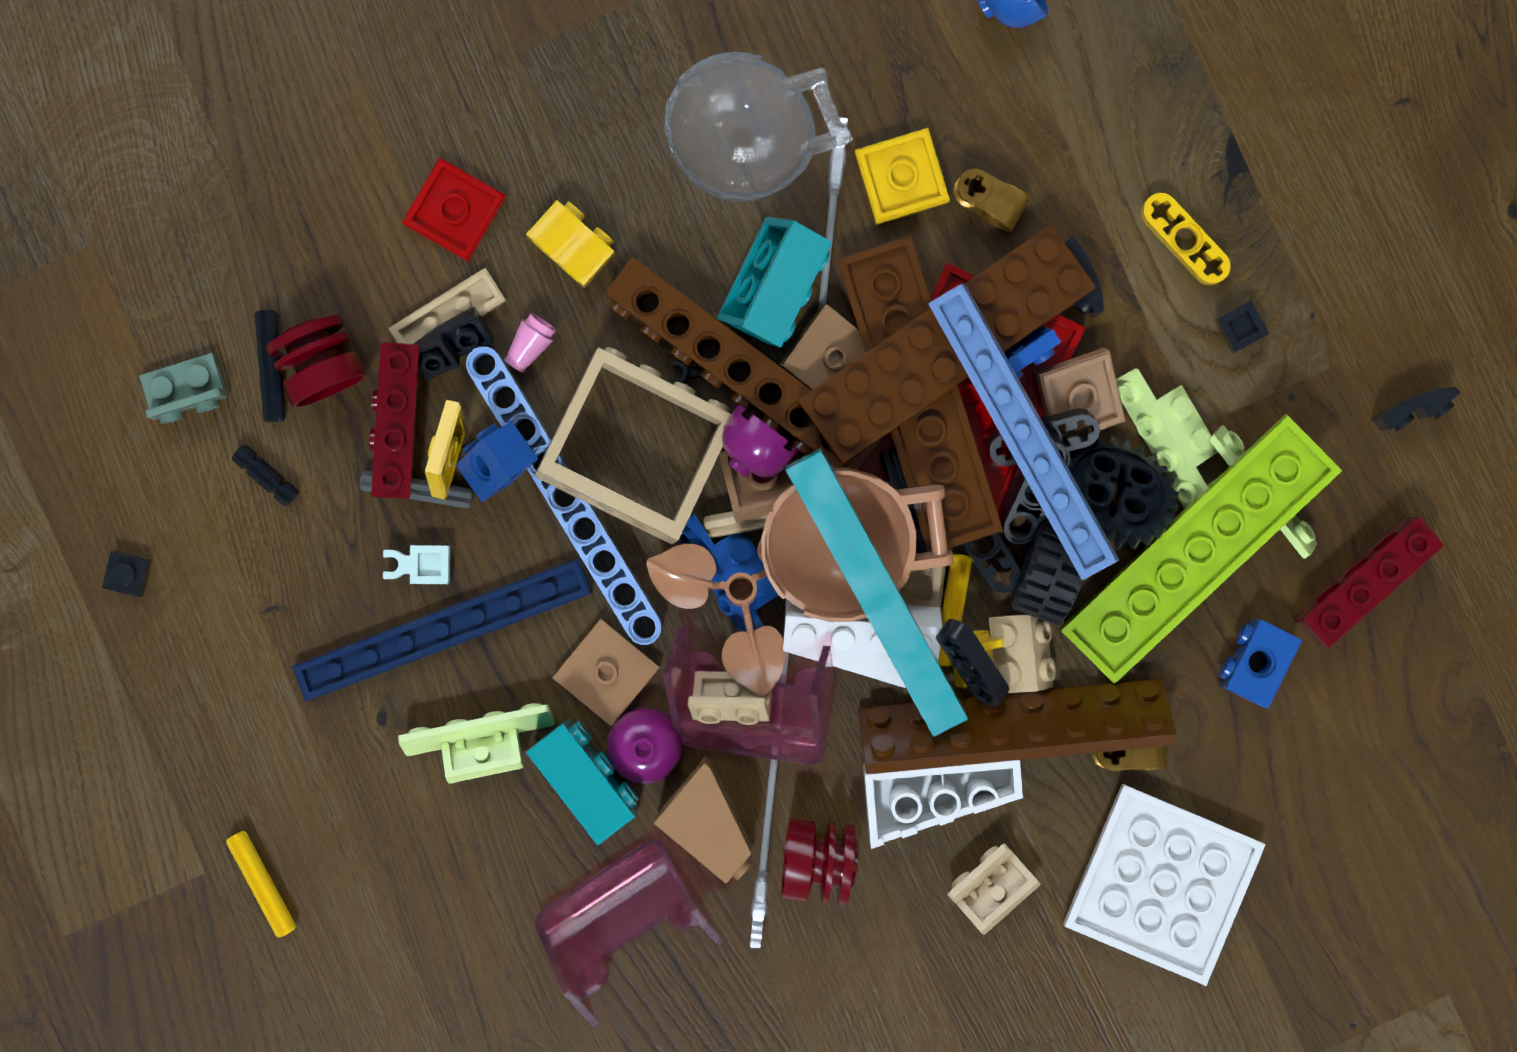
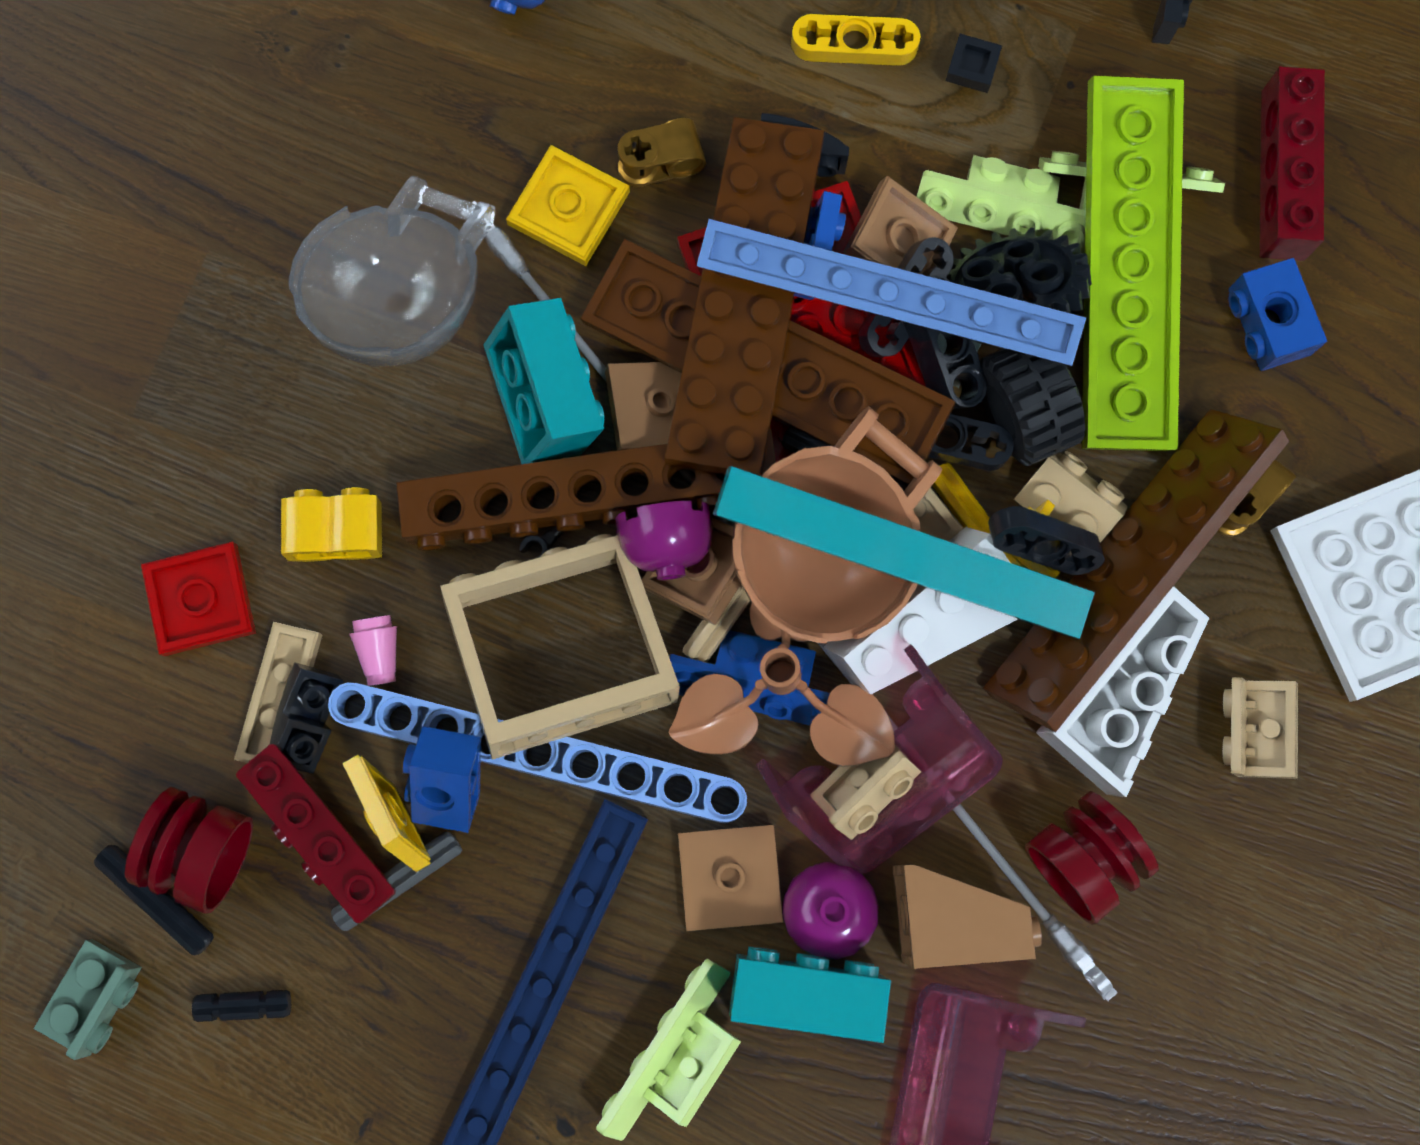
camera: 45 degrees left, 10 degrees down
(424, 564) = (468, 943): light aqua plate -> none

